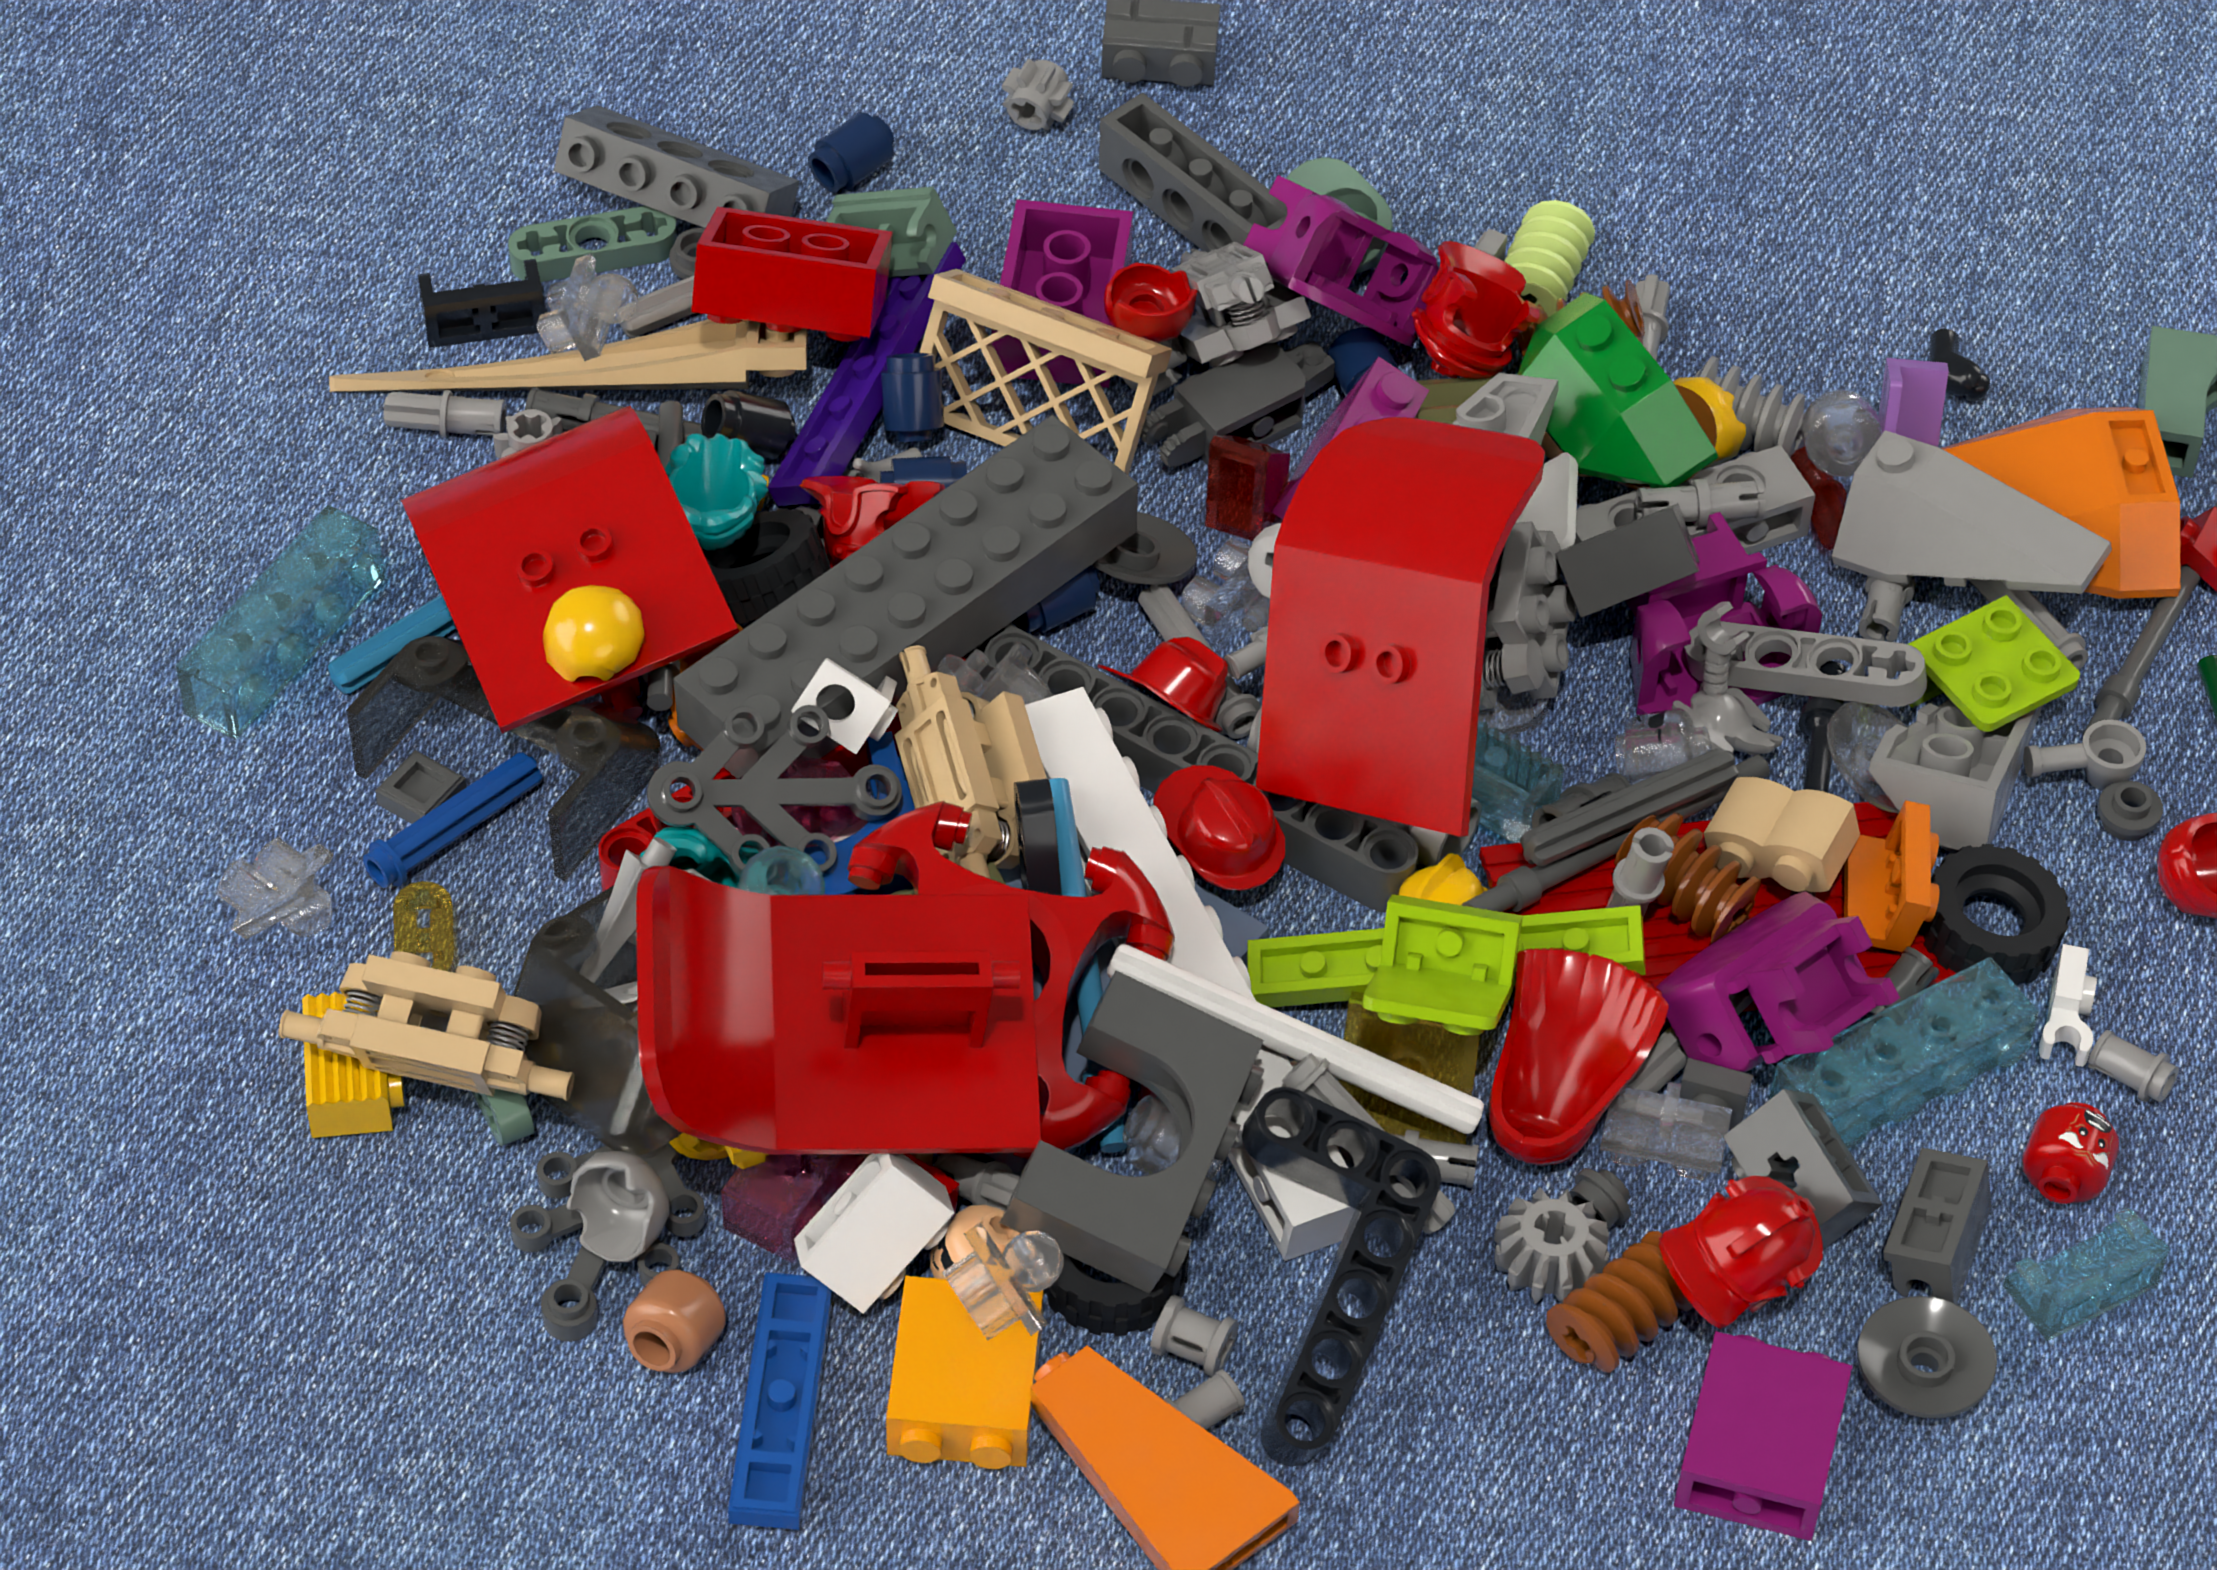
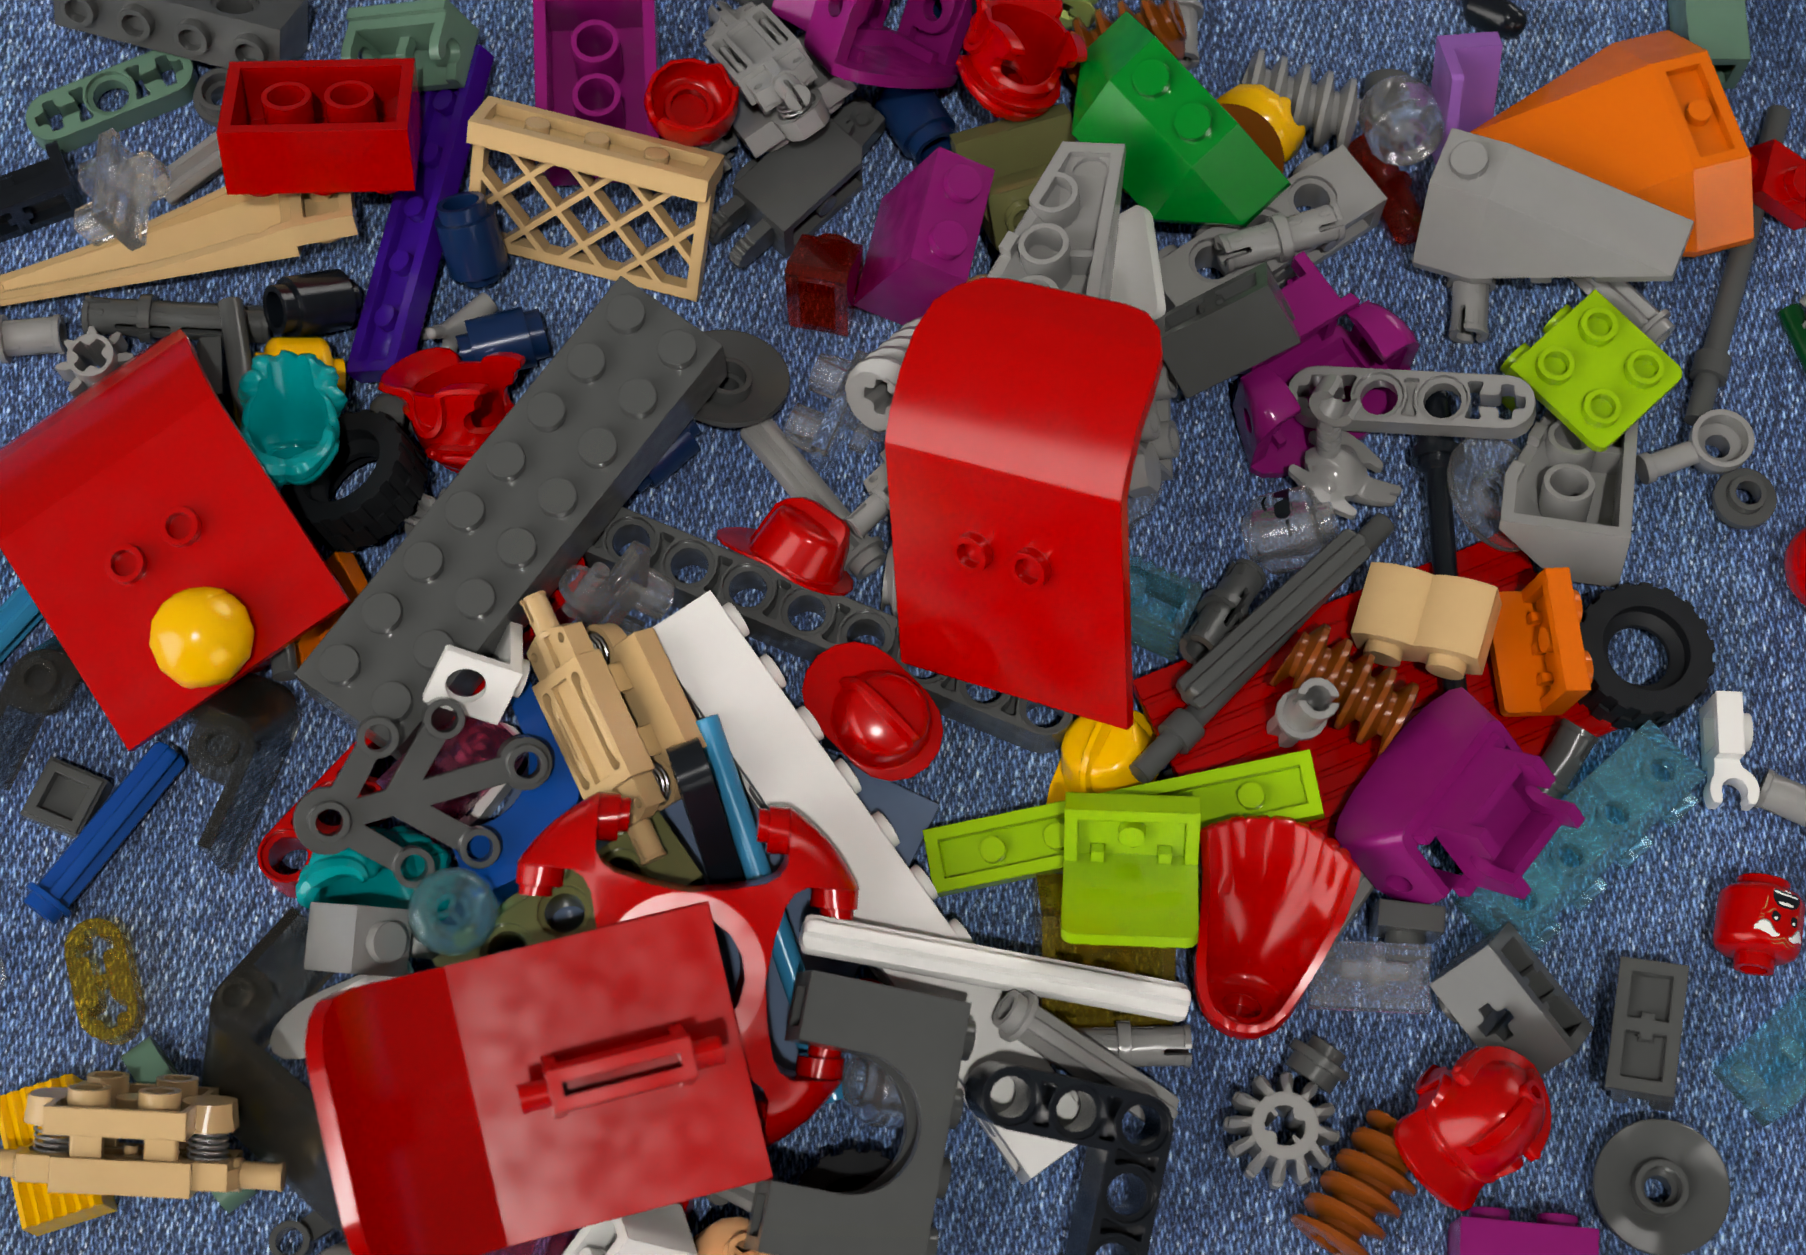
camera: 10 degrees left, 20 degrees up
(620, 914) = (305, 933): light grey piece -> none

